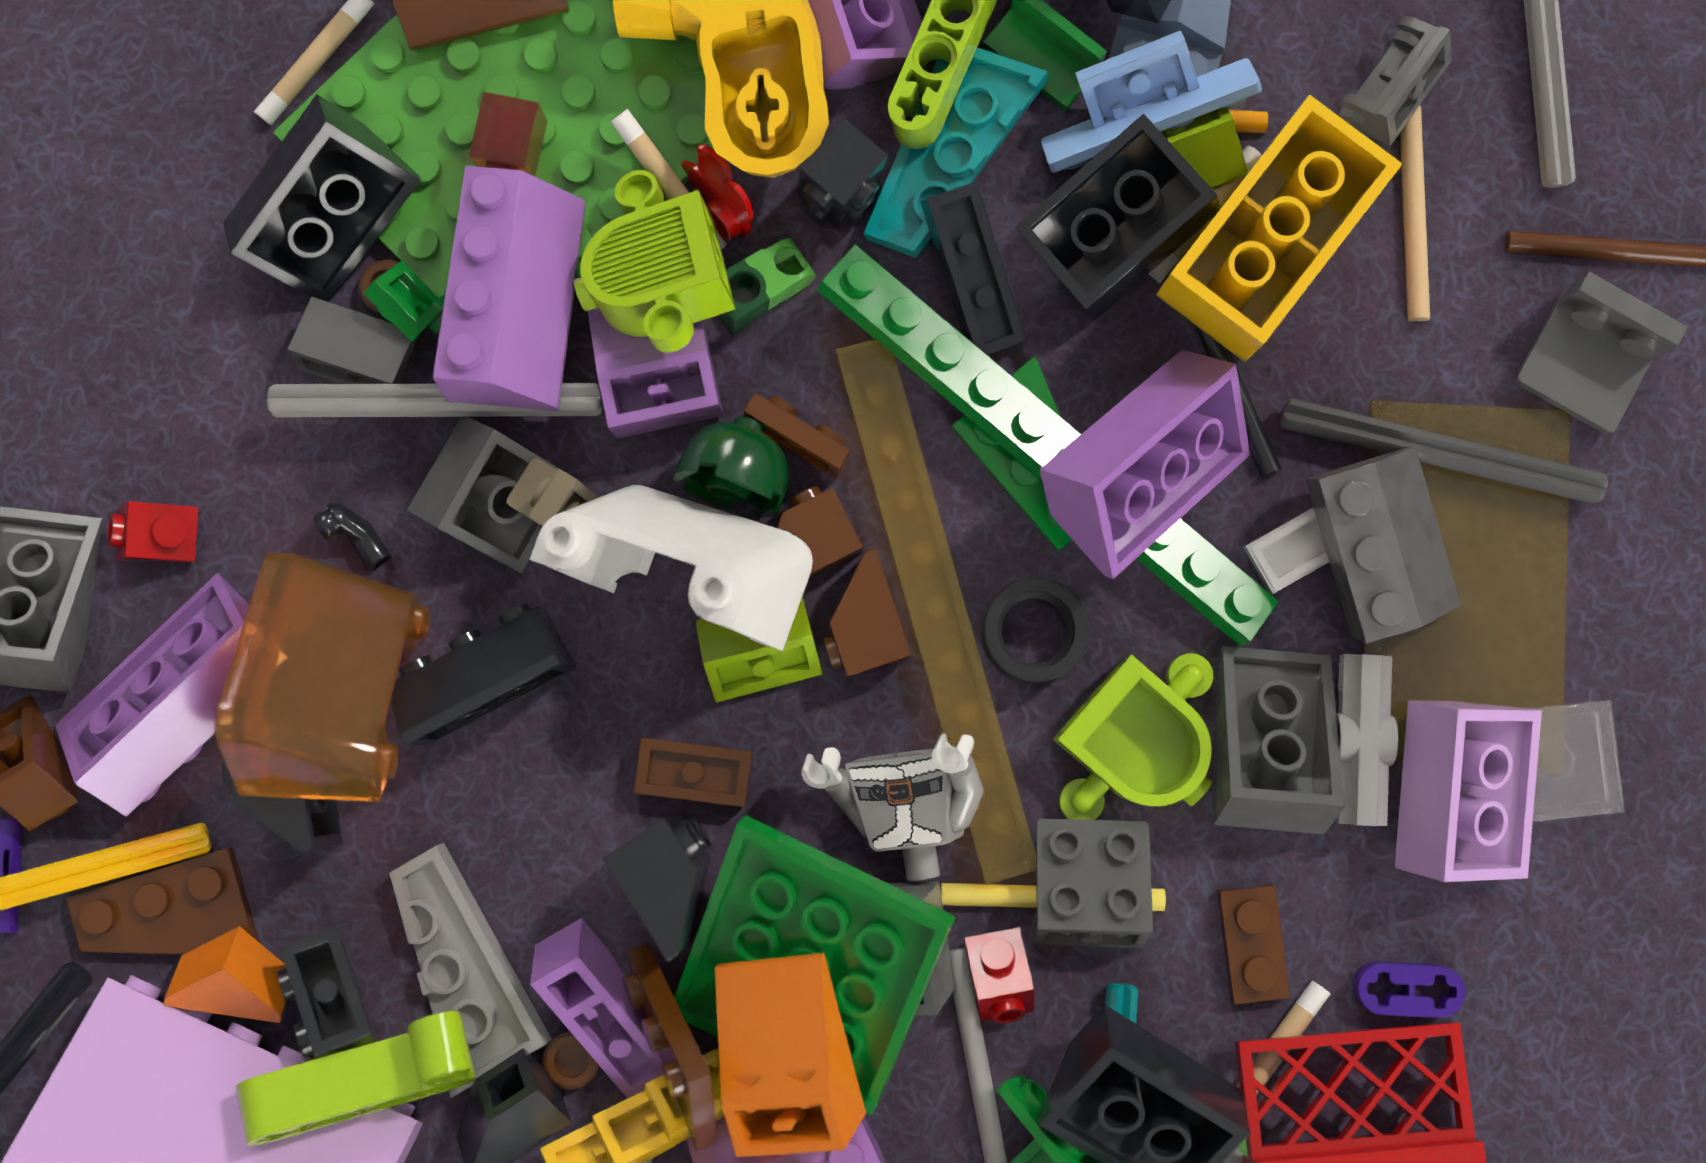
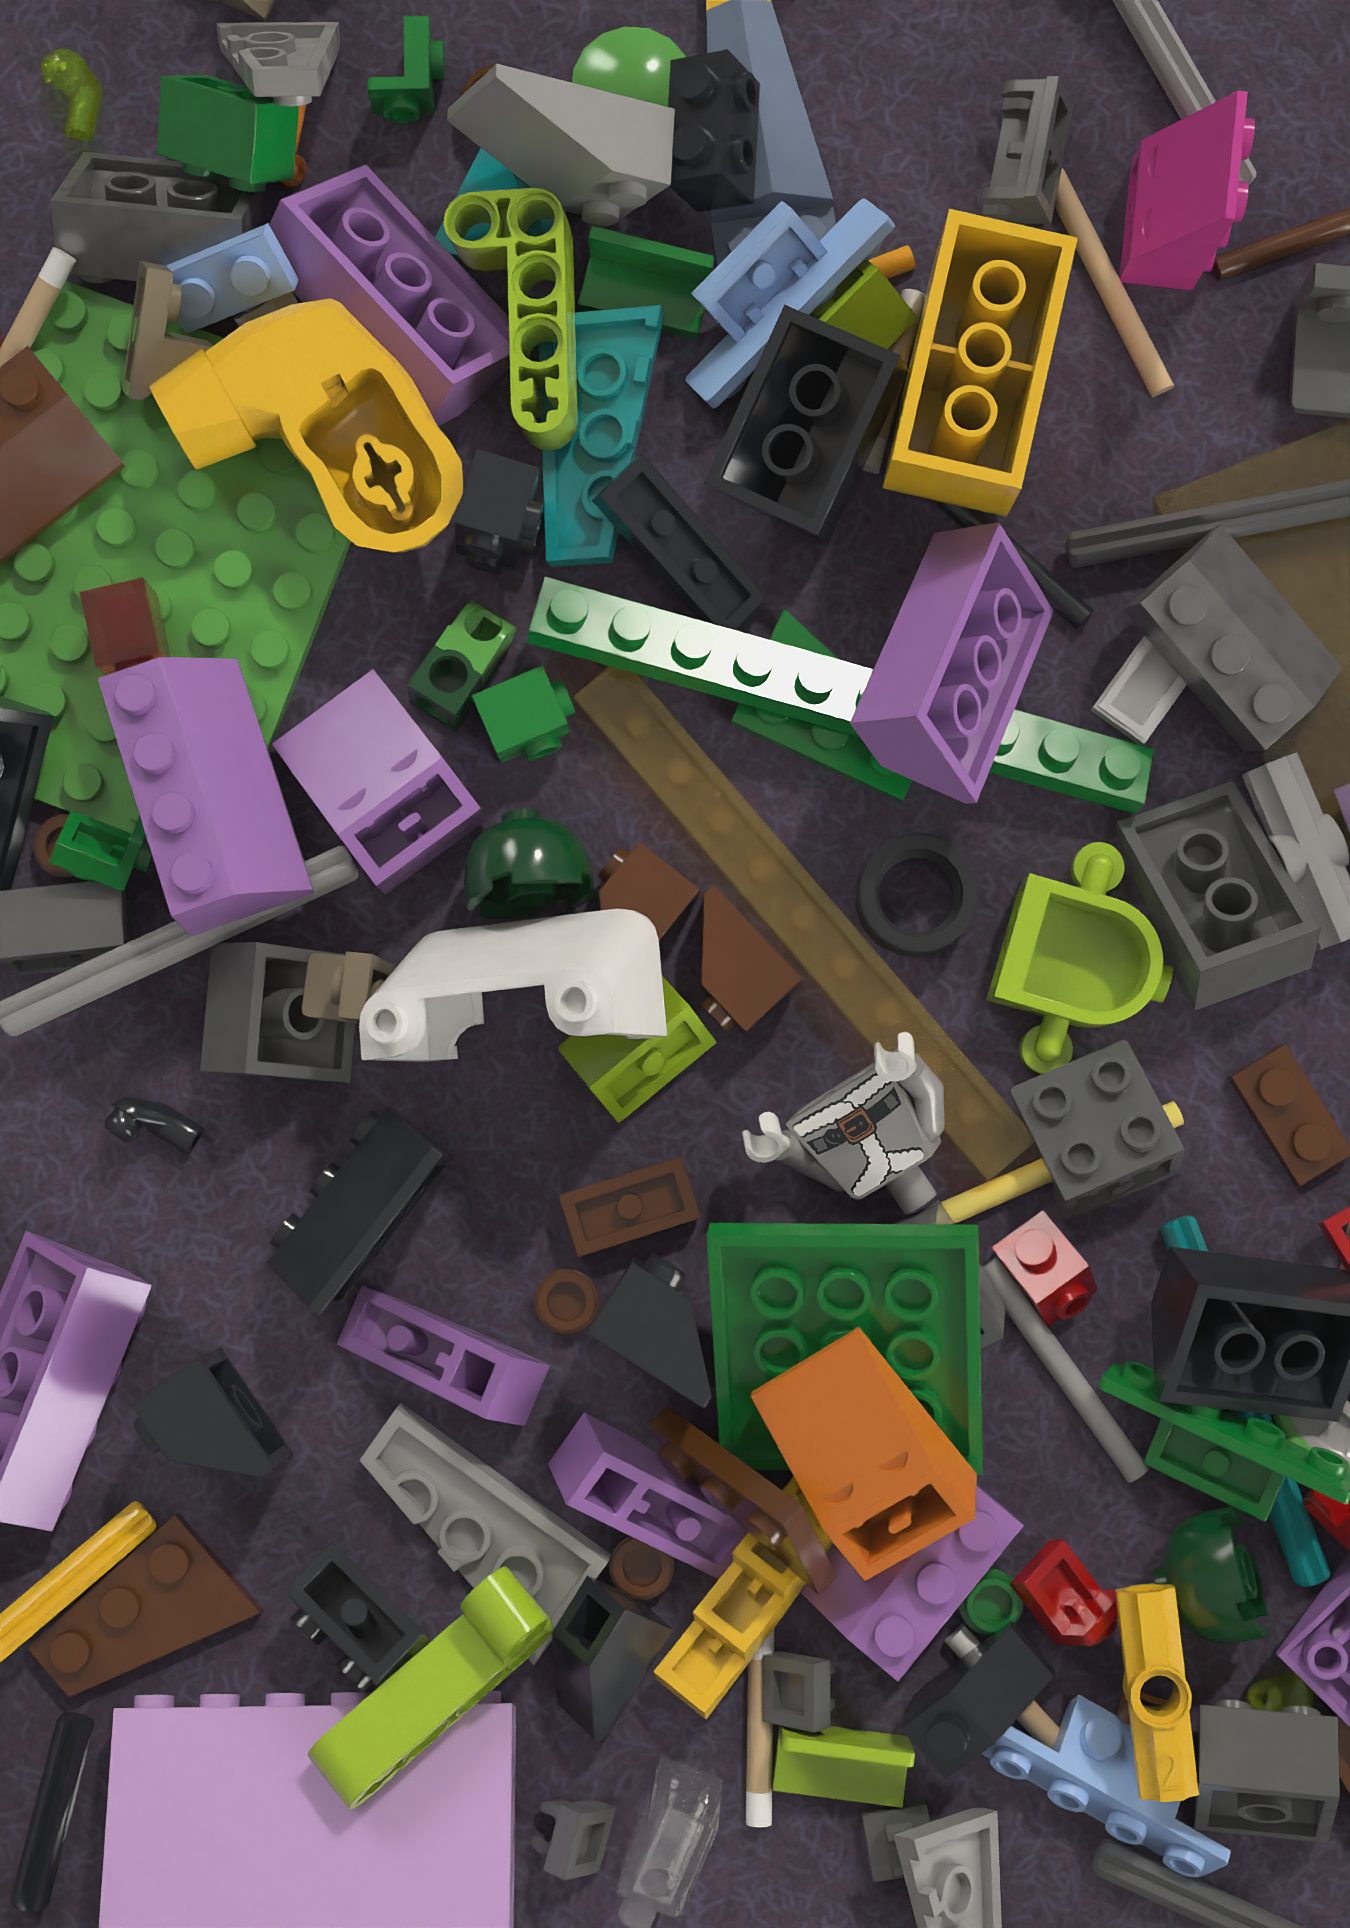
camera: 30 degrees left, 0 degrees up
(229, 978) = (242, 1649): orange slope -> none
(316, 682) = (197, 1292): clear orange windscreen -> none
(493, 824) = (444, 1357): none -> medium lavender slope
(610, 823) = (566, 1301): none -> reddish brown tile
(650, 157) = (316, 600): tan bar -> none
(655, 265) = (346, 694): lime piece -> none
(726, 199) = (389, 593): red plate -> none
(790, 347) = (525, 715): none -> green brick
(816, 446) = (601, 806): reddish brown plate -> none
(1508, 170) = (1186, 195): none -> dark pink slope

